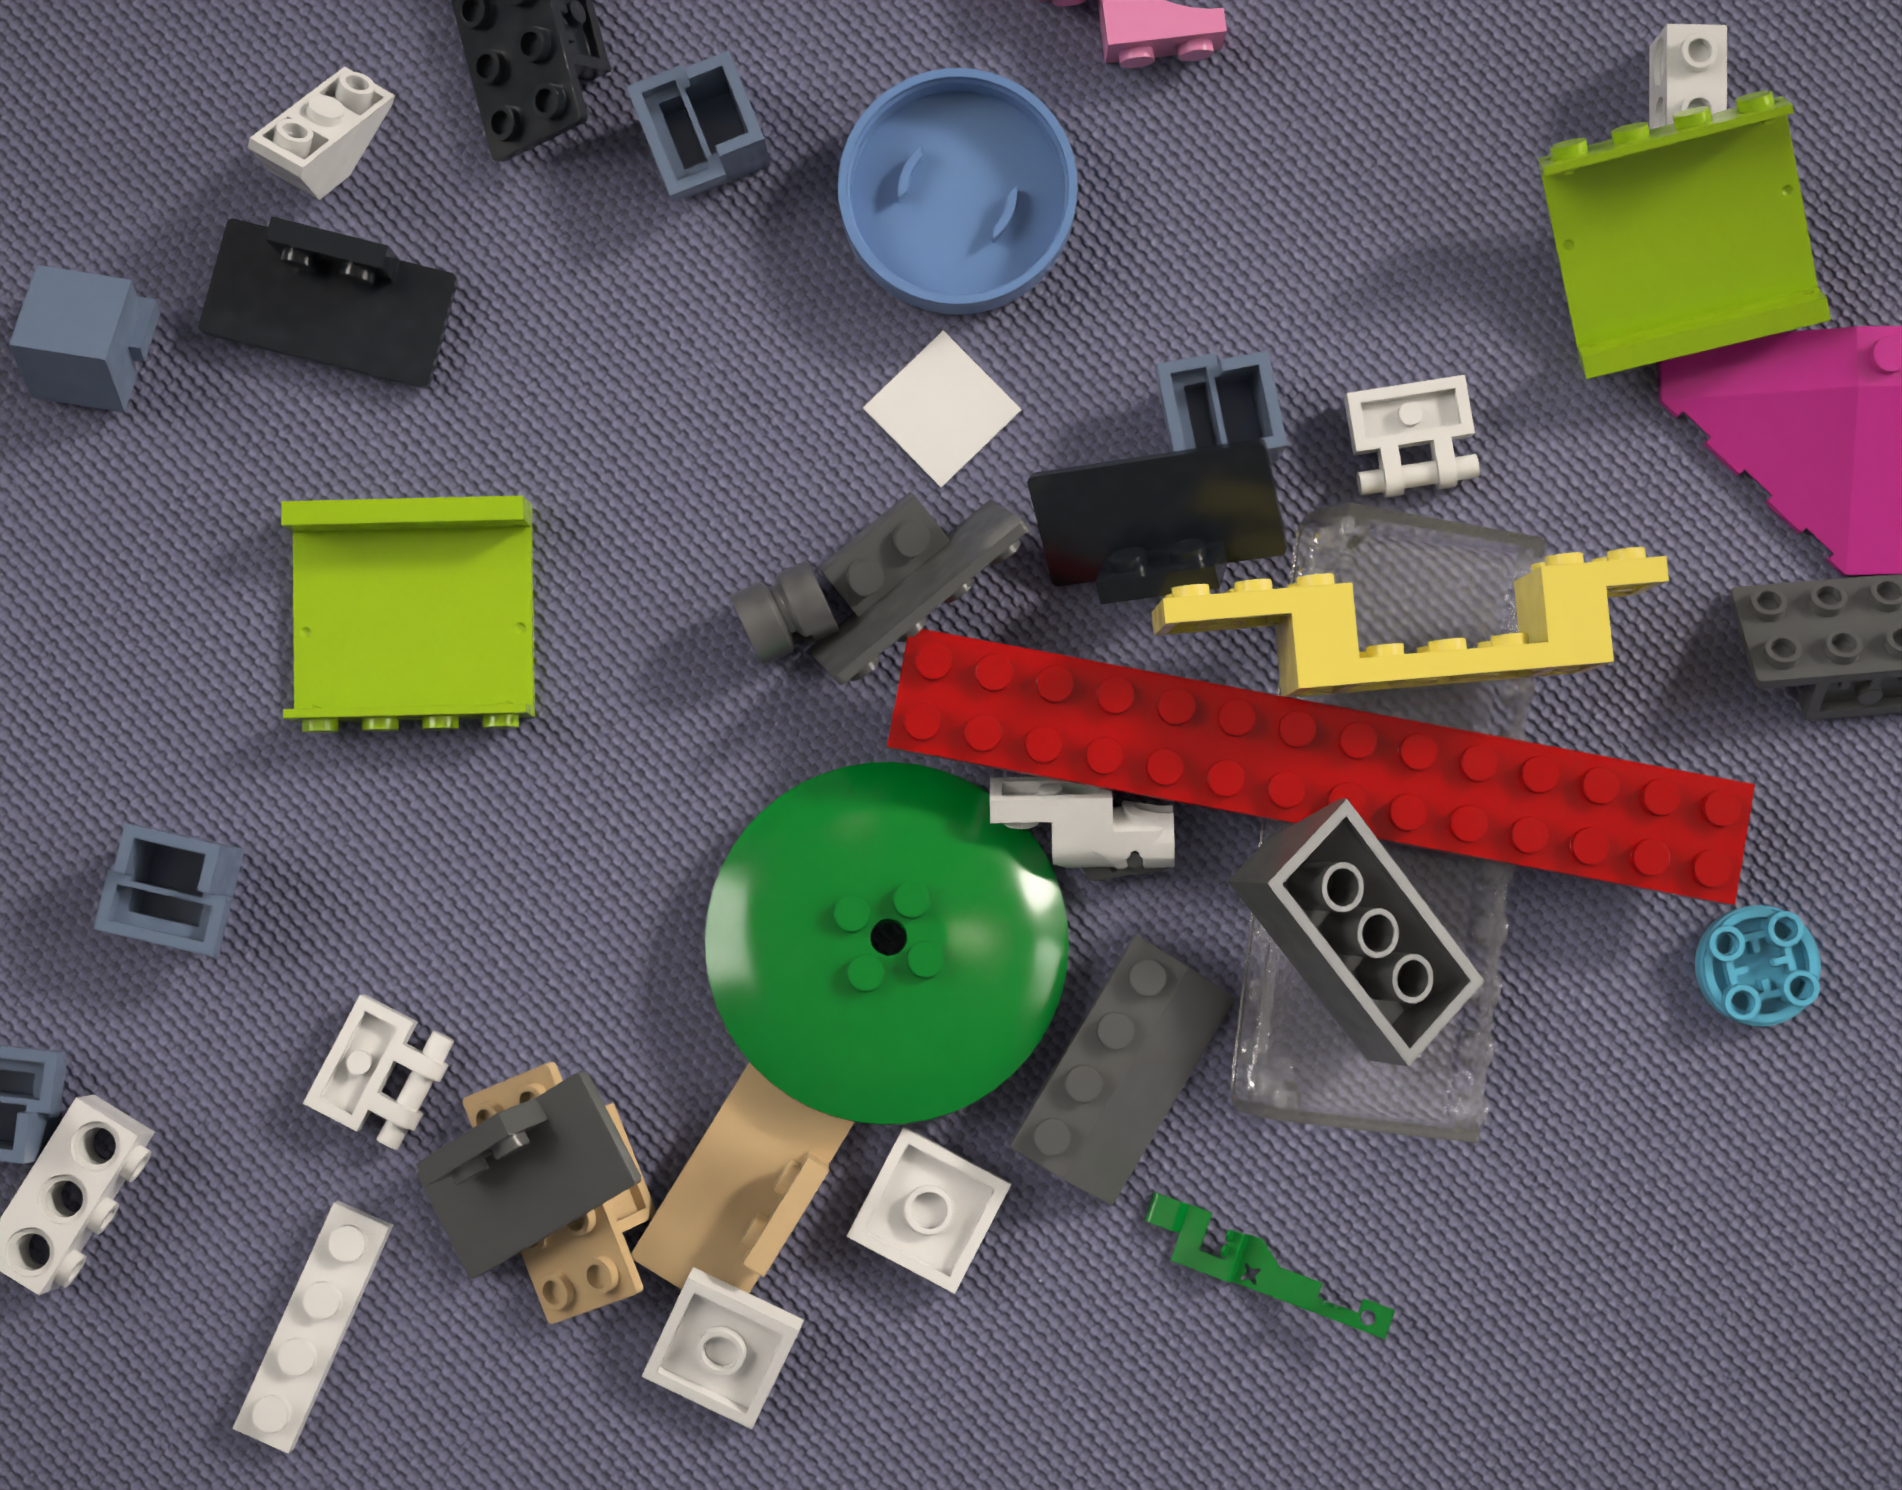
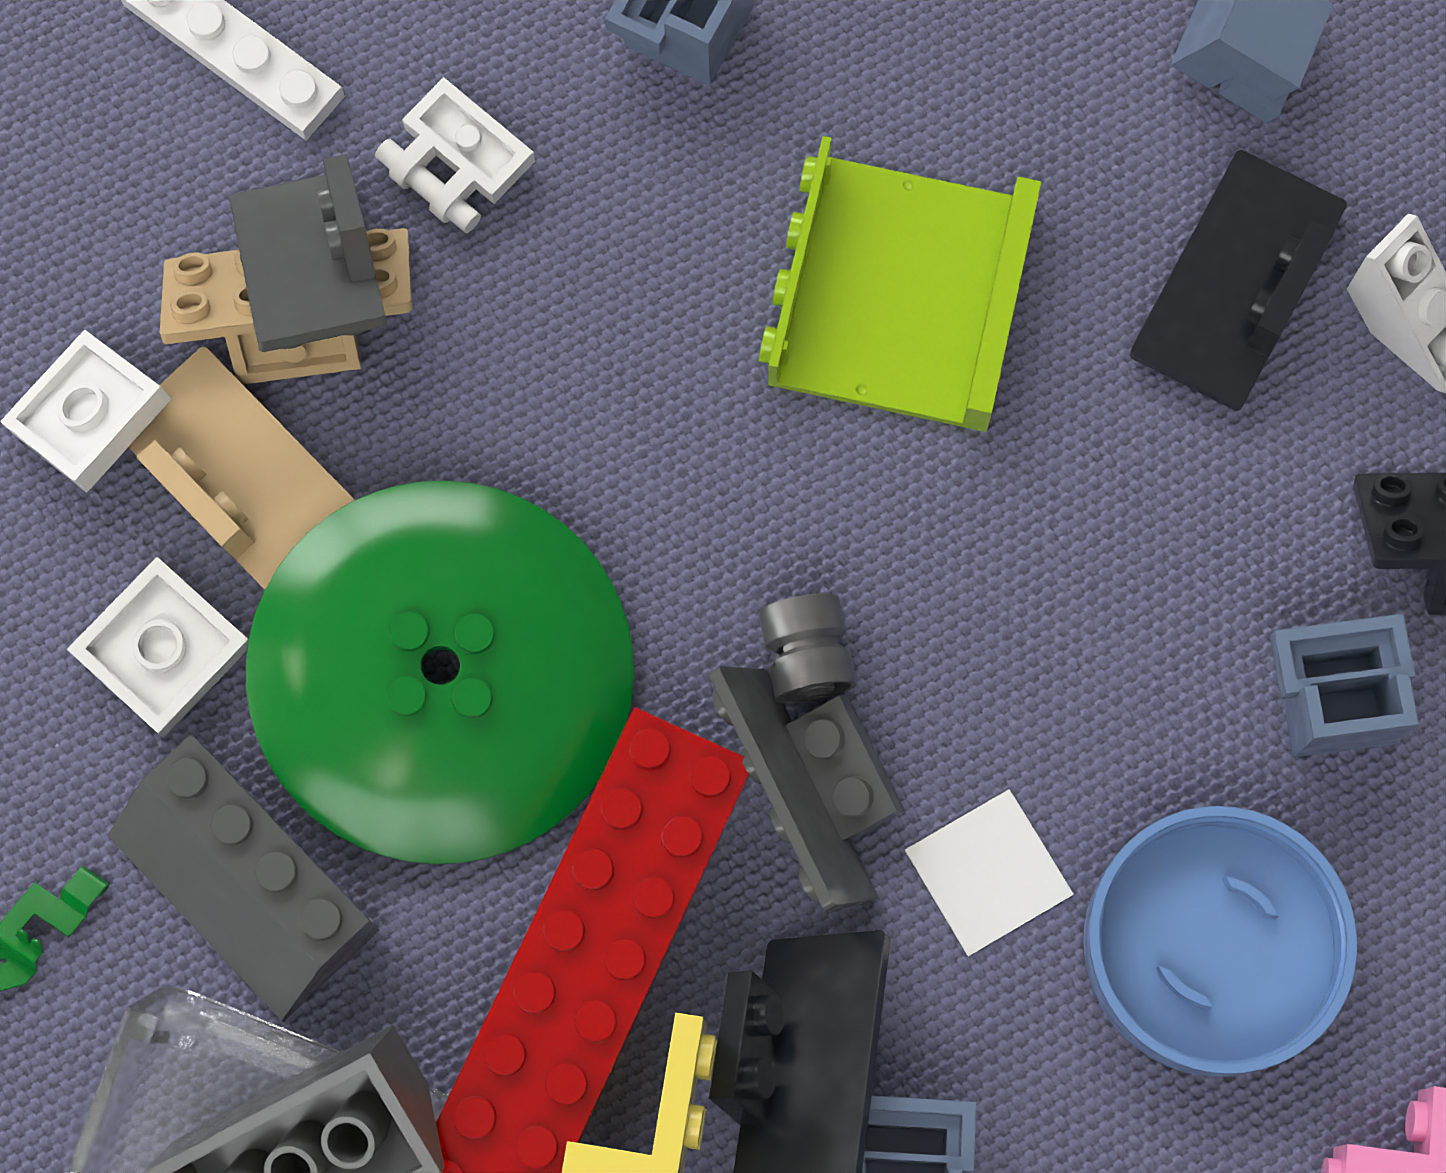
camera: 105 degrees right, 10 degrees down
(1087, 827) = (499, 905): white plate -> none

